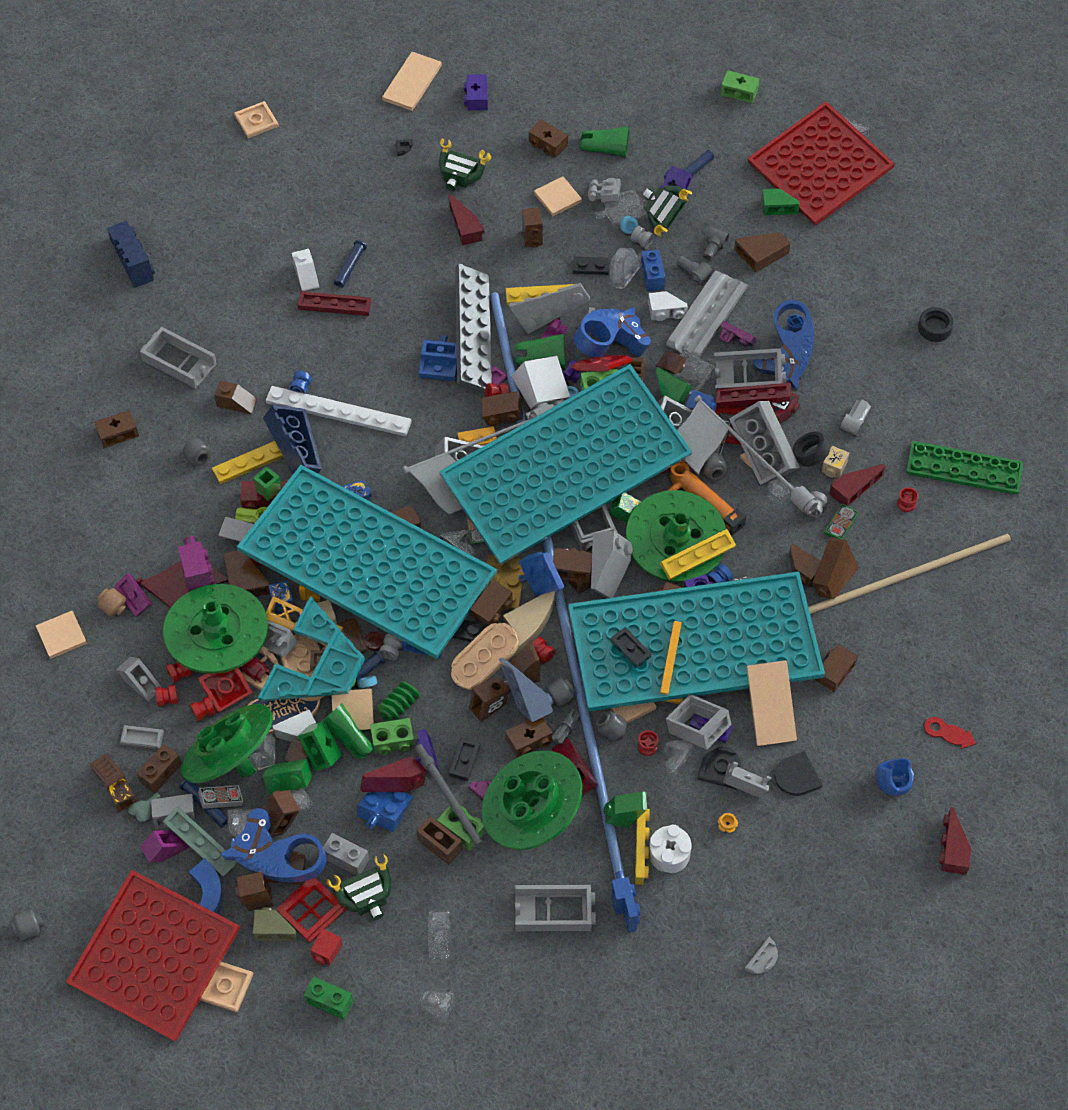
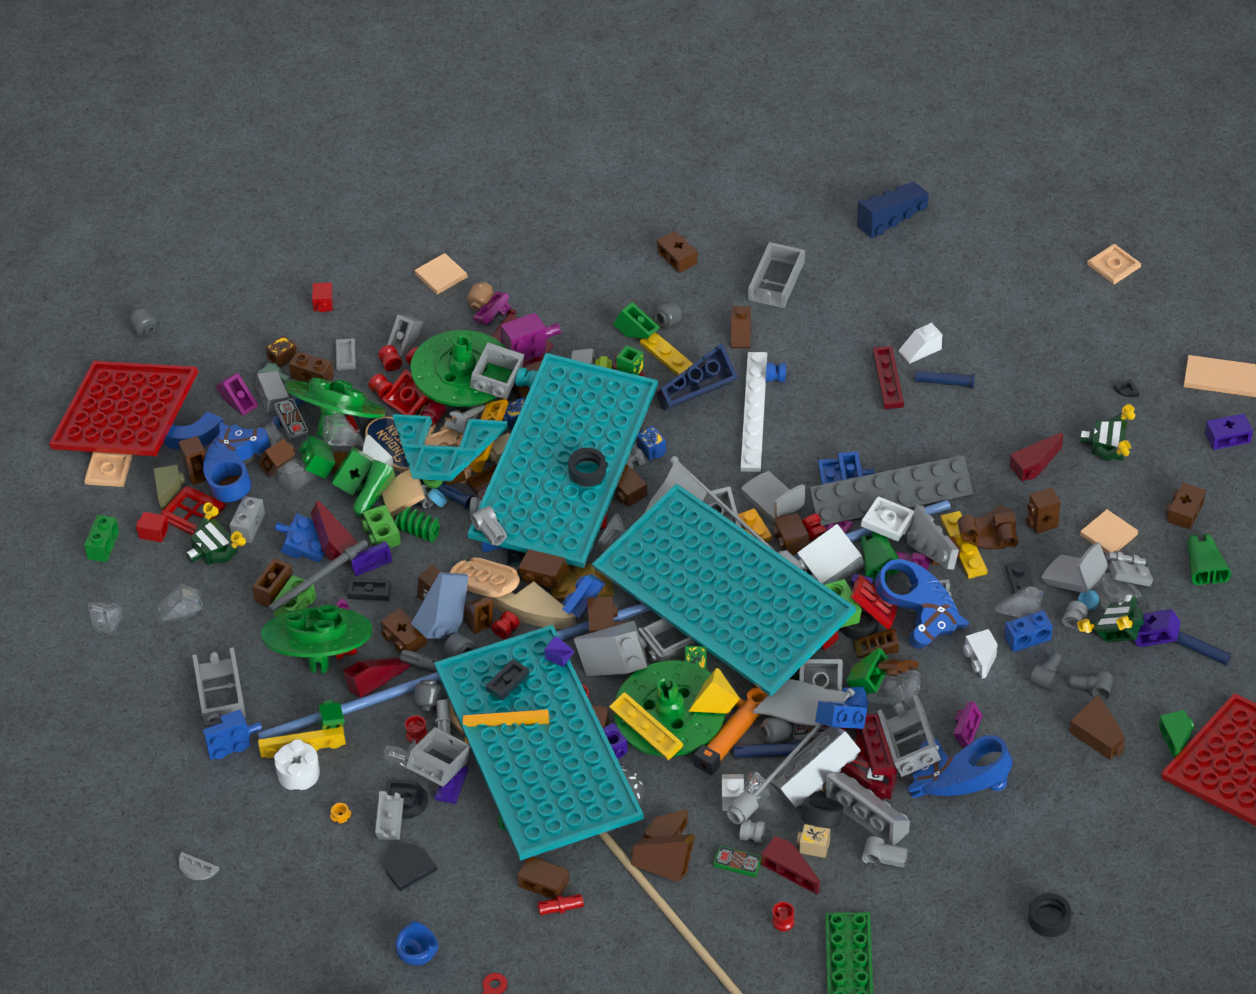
camera: 80 degrees right, 10 degrees down
(57, 745) = (322, 297): none -> red brick
(106, 770) = (301, 334): reddish brown slope -> none
(199, 841) = (246, 404): sand green plate -> none
(201, 478) = (635, 323): none -> green slope
(237, 577) = (493, 355): none -> light grey window
(253, 573) = (525, 377): none -> teal wheel
(395, 527) = (587, 479): none -> black tyre
(433, 633) = (487, 522): none -> light grey piece
(451, 415) = (772, 496): none -> light grey piece
(512, 332) = (888, 519): none -> white plate
(531, 268) = (990, 531): none -> reddish brown panel
(602, 223) = (1075, 572): none -> light grey piece
(607, 602) = (558, 651): none -> dark purple slope
(643, 718) = (443, 716): none -> light grey axle
(679, 493) = (715, 695): none -> yellow slope
(706, 314) = (989, 692): light grey plate -> none
(721, 574) = (633, 758): blue wheel -> none
(728, 406) = (841, 714): none -> blue brick
(731, 475) = (764, 750): none -> dark blue pin
(768, 509) = (731, 788): none -> white slope
(771, 703) = (478, 818): light nougat tile -> none
(815, 415) = (867, 809): none -> light grey slope
(864, 661) = (560, 904): none -> red pin

